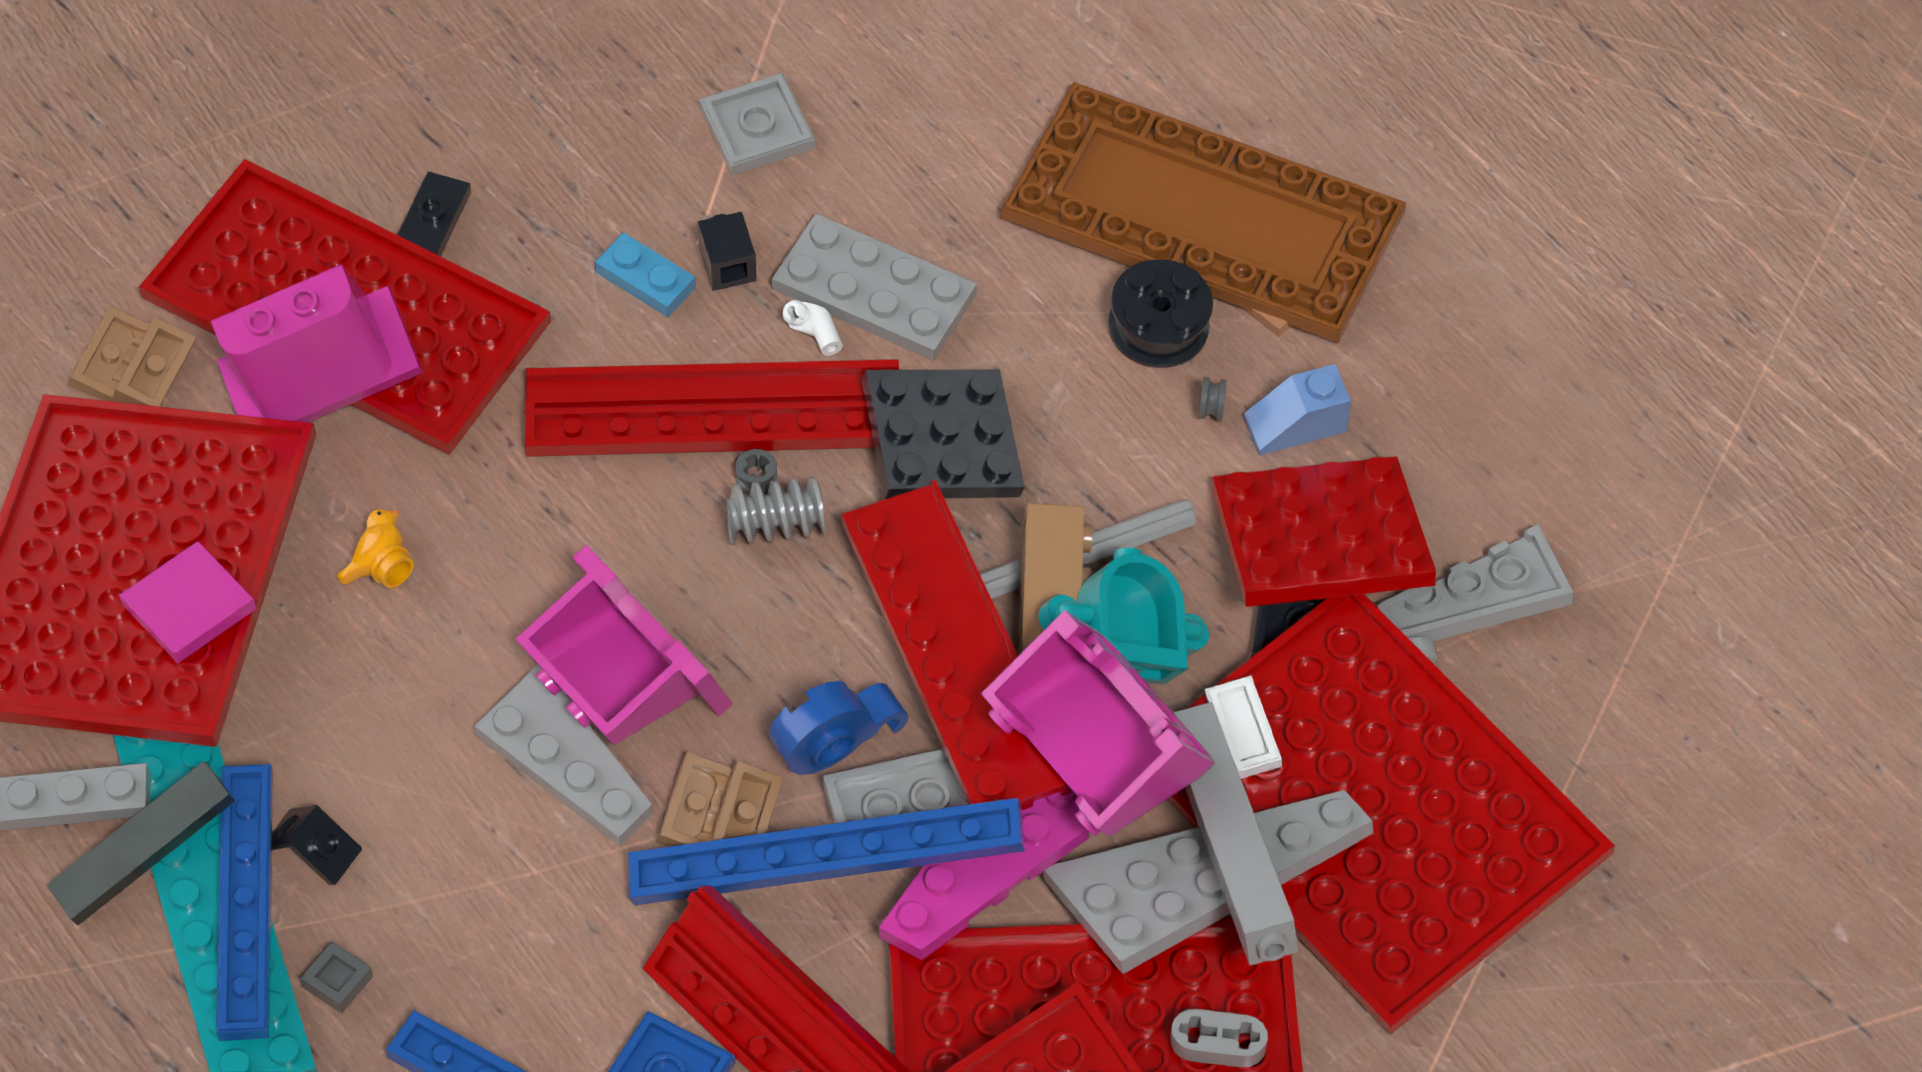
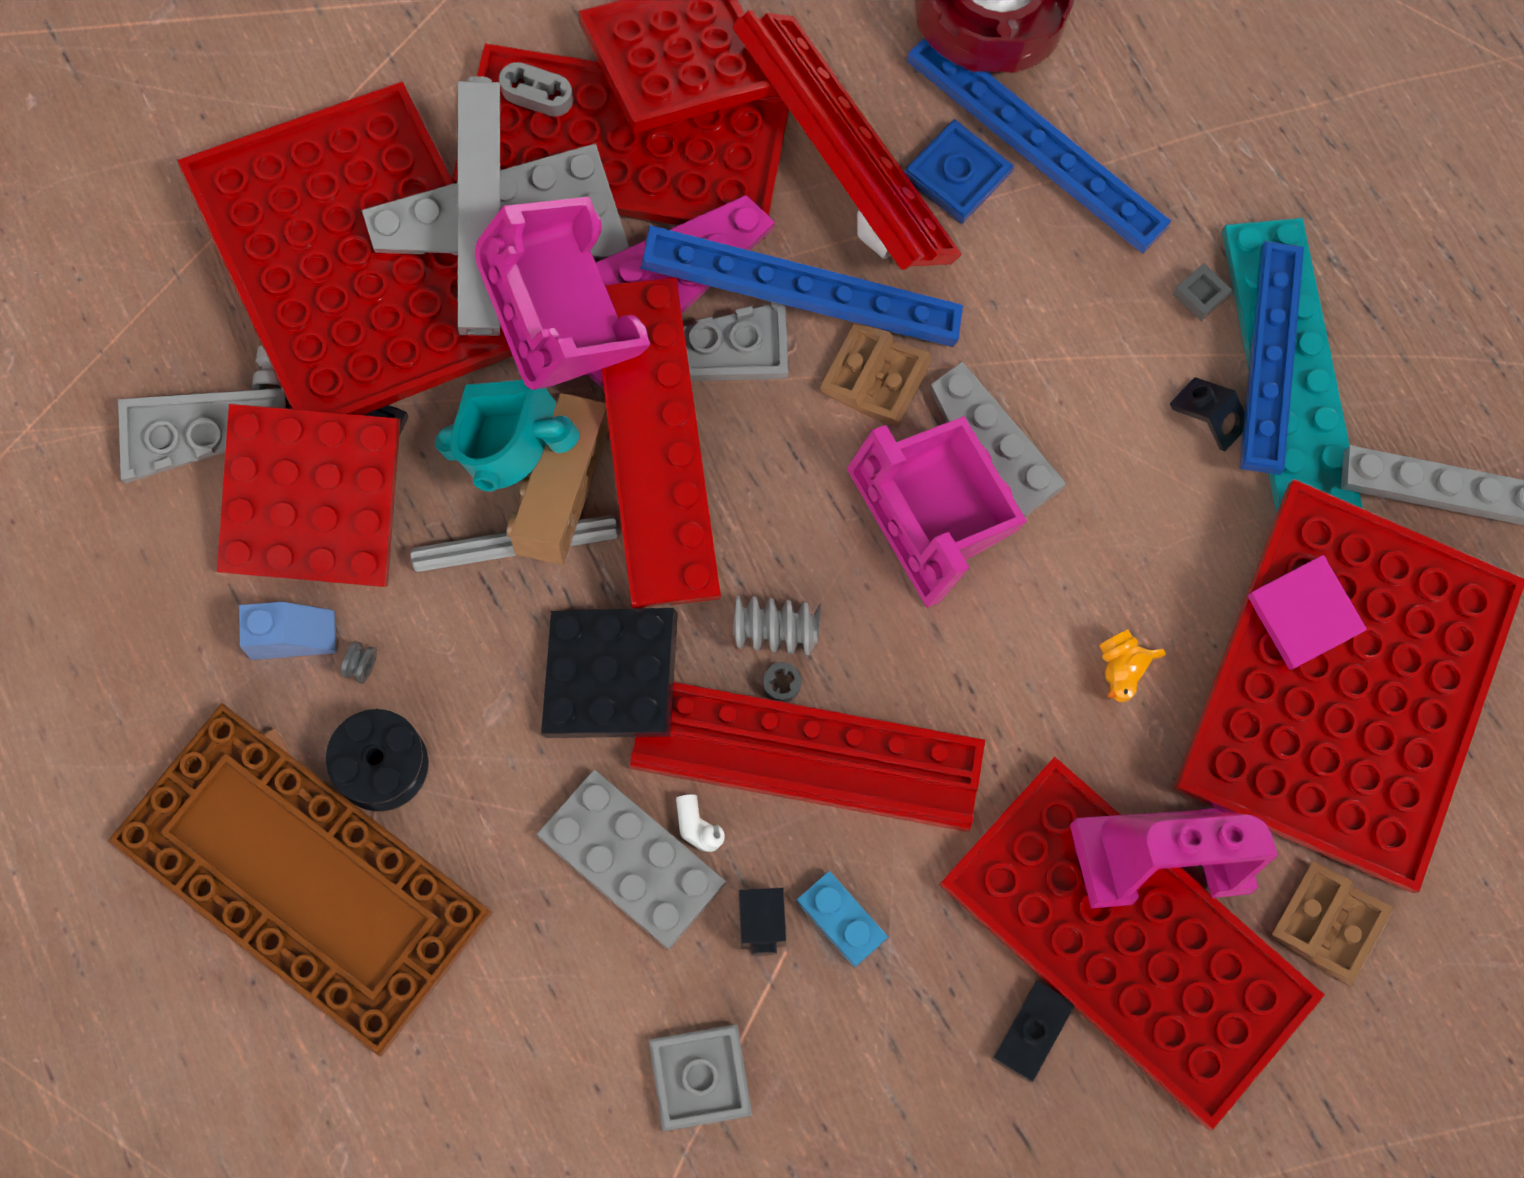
camera: 170 degrees left, 15 degrees up
(140, 843) = (1351, 423): pearl dark grey tile -> none
(833, 724) = (779, 396): blue piece -> none
(1245, 726) = (436, 327): white tile -> none

